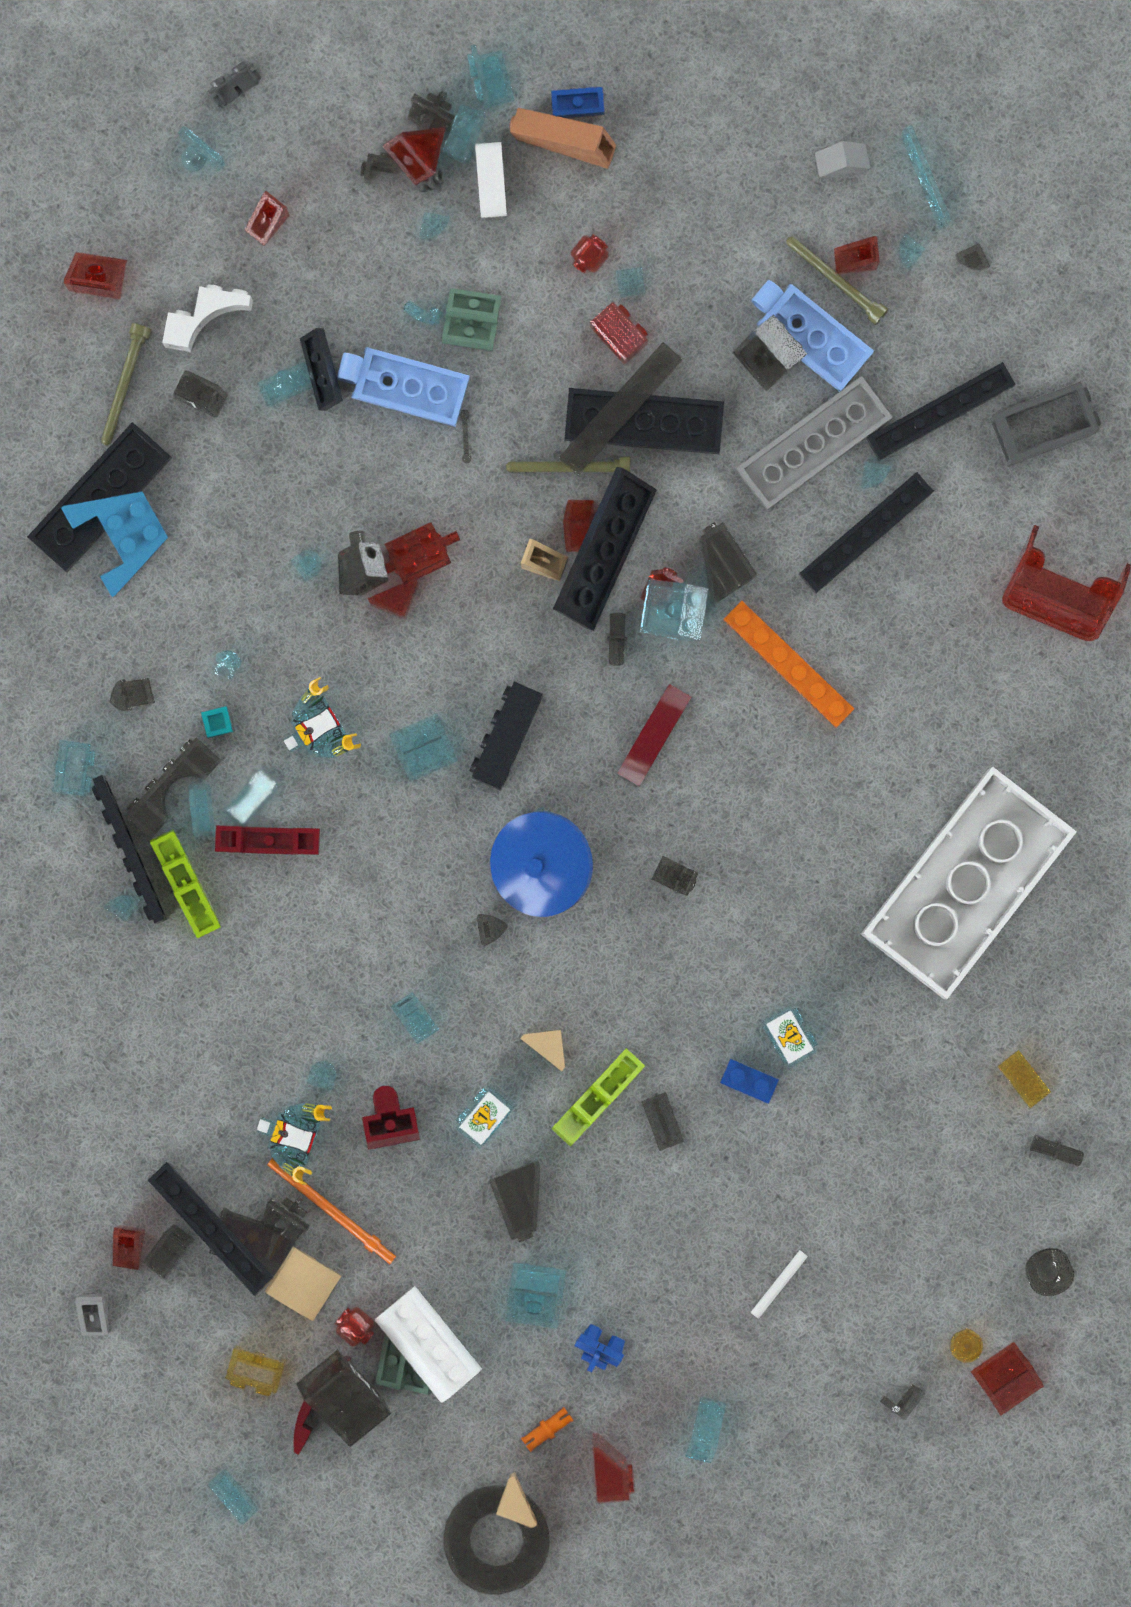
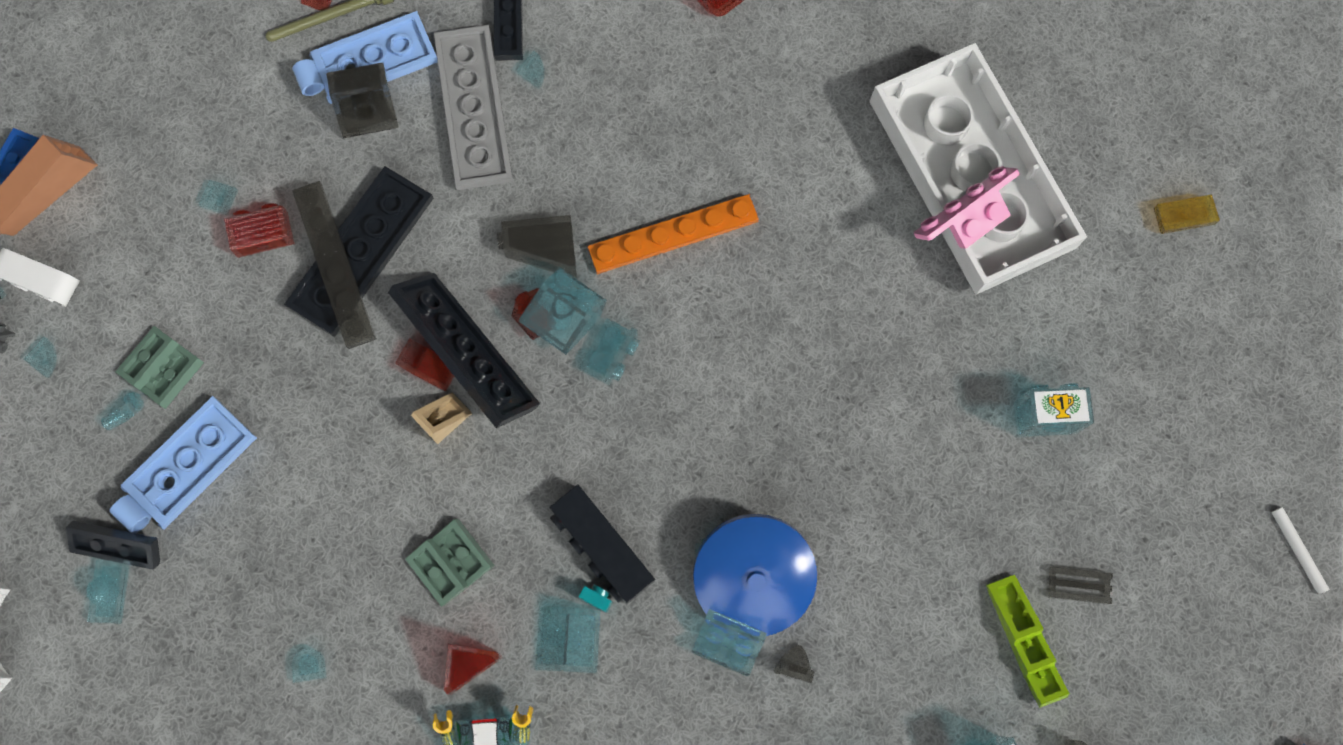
camera: 70 degrees left, 10 degrees down
(200, 393) = (54, 692): clear smoke torso -> none
(360, 566) = (341, 608): clear smoke torso -> none
(367, 681) = (465, 664): none -> clear red slope
(396, 599) = (397, 588): clear red slope -> none
(419, 553) = (362, 541): clear red plate -> none
(427, 619) = (436, 560): none -> sand green slope
(464, 415) = (251, 423): clear smoke hinge -> none
(465, 753) = (596, 597): none -> teal plate
(481, 869) = (729, 643): none -> clear light blue bracket
(548, 1045) = (950, 665): tan slope -> none
(589, 253) = (165, 219): clear red head -> none
(617, 639) = (561, 384): clear smoke axle -> none
(623, 462) = (359, 351): olive piece -> none
(654, 735) = (678, 396): dark red slope -> none
(662, 663) = (609, 351): none -> clear light blue bracket
(675, 876) = (832, 445): clear smoke bracket -> none
(749, 1081) = (1075, 476): blue plate -> none
(866, 532) = (585, 103): black plate -> none
(917, 896) = (974, 212): none -> bright pink bracket
(1056, 1150) = (1269, 218): clear smoke axle -> none

